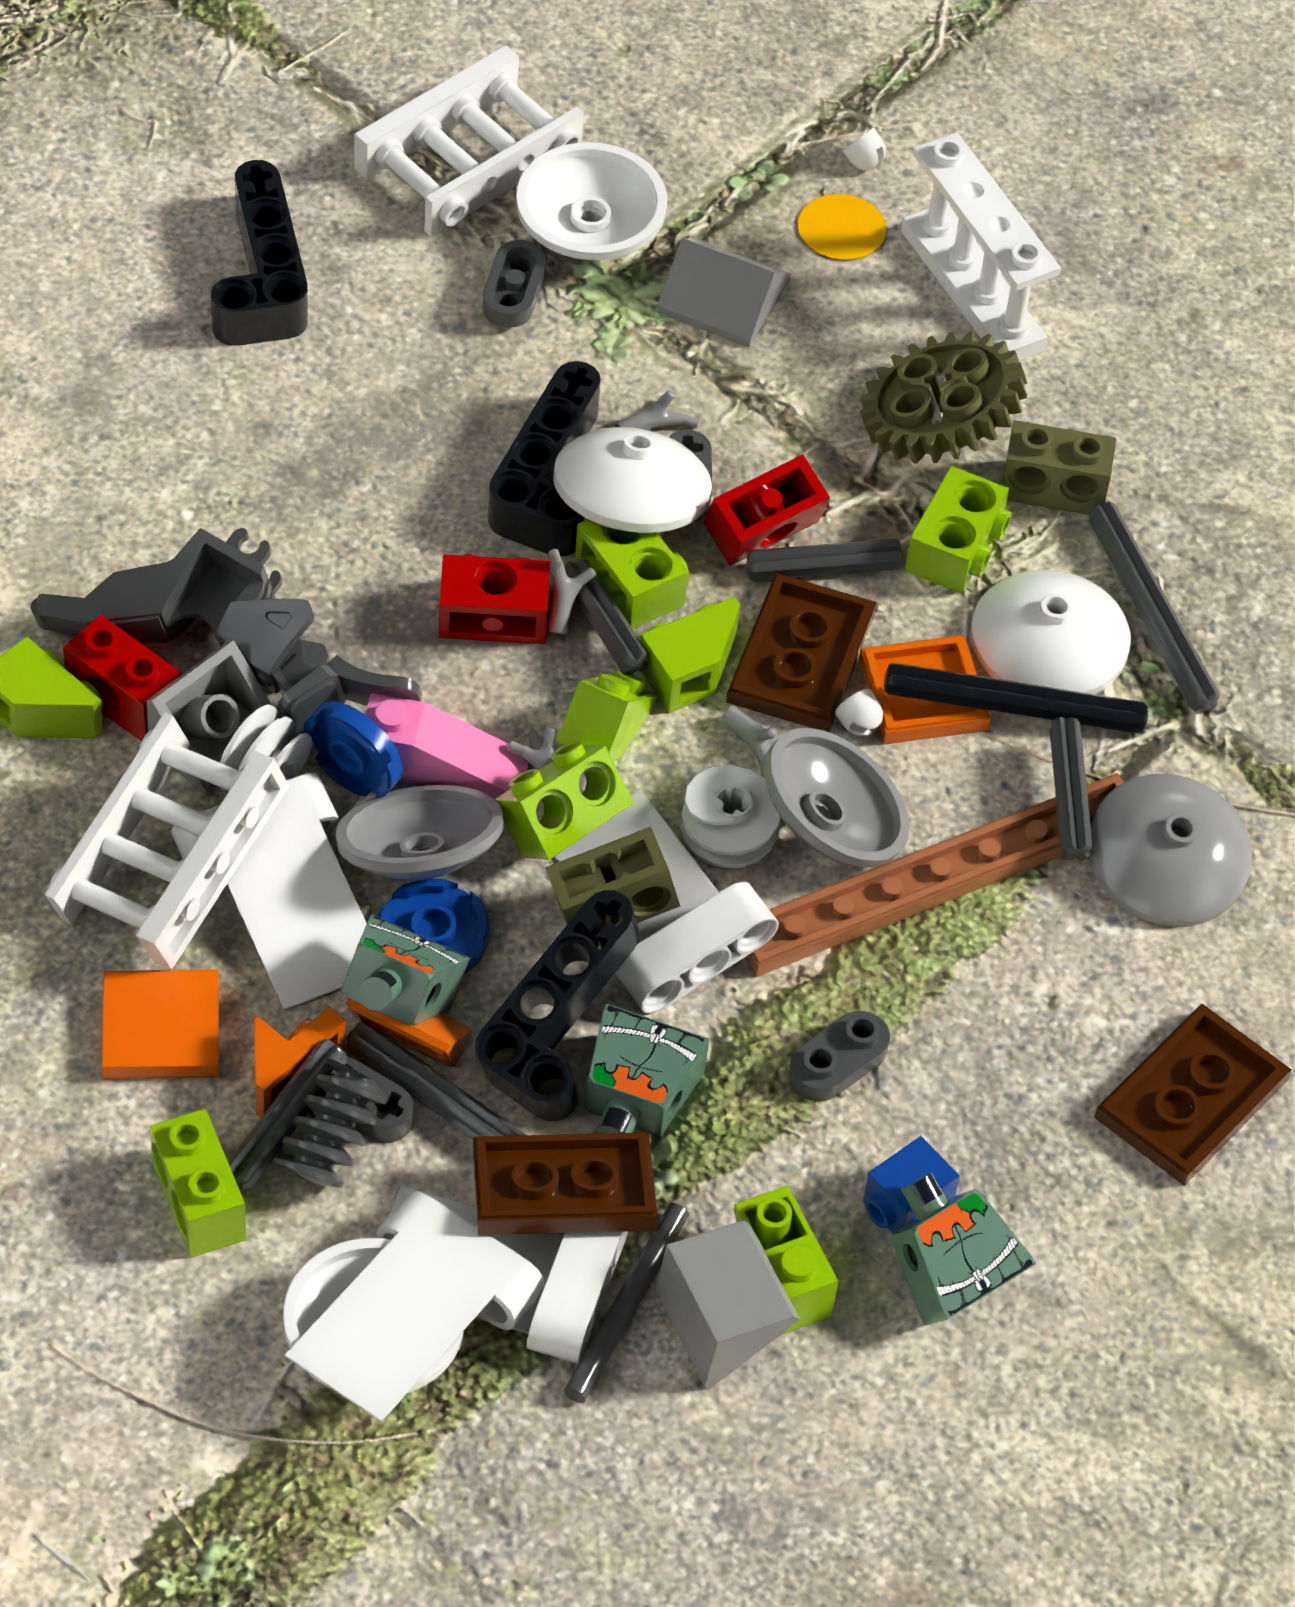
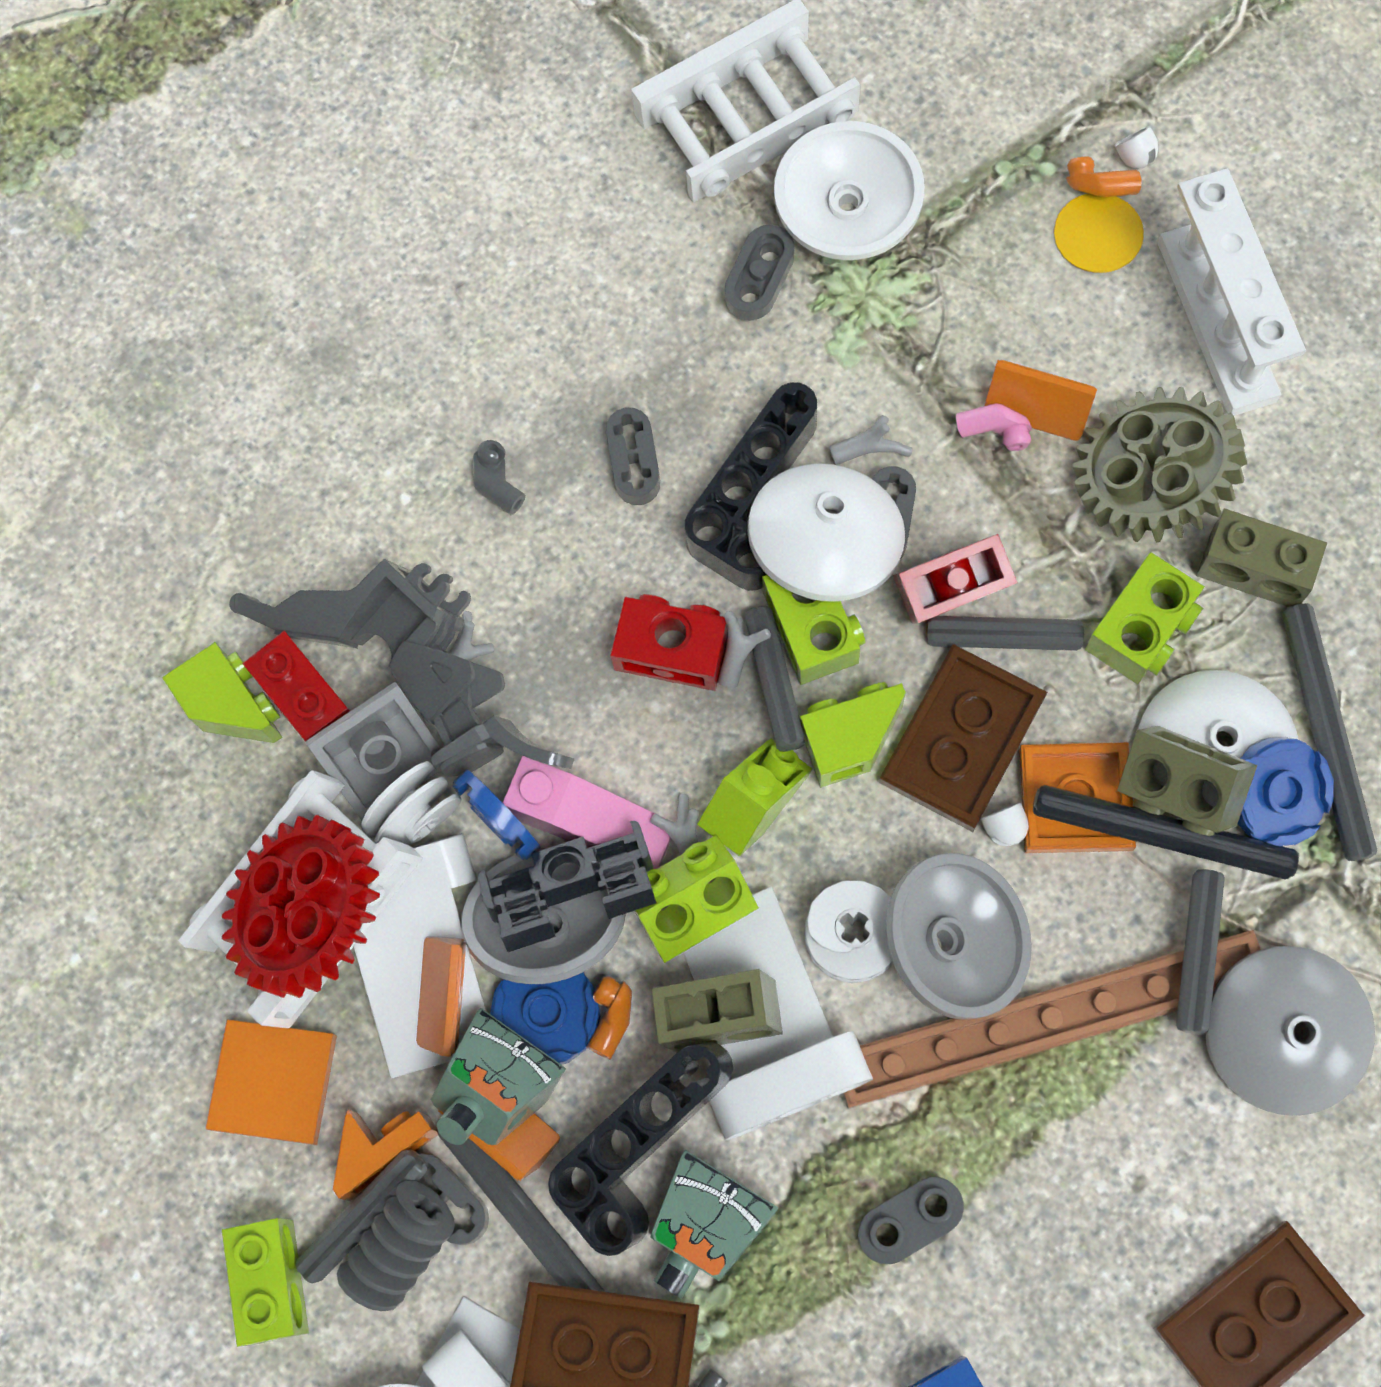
camera: 25 degrees right, 20 degrees up
(217, 806) = (300, 906): none -> red gear
(274, 296) = (525, 211): black beam -> none
(276, 484) = (490, 477): none -> dark grey arm
(327, 913) = (441, 995): none -> orange slope
(415, 804) = (612, 866): none -> black piece
(428, 448) = (643, 454): none -> dark grey beam
(507, 924) = (616, 1019): none -> orange arm
(720, 291) = (963, 298): light grey slope -> none
(757, 737) = (898, 834): light grey bar -> none
(781, 384) = (999, 419): none -> bright pink arm
(815, 362) = (1047, 400): none -> orange slope
(837, 181) = (1102, 184): none -> orange arm
(1028, 631) = (1188, 768): none -> olive brick
(1118, 651) = (1287, 791): none -> tile

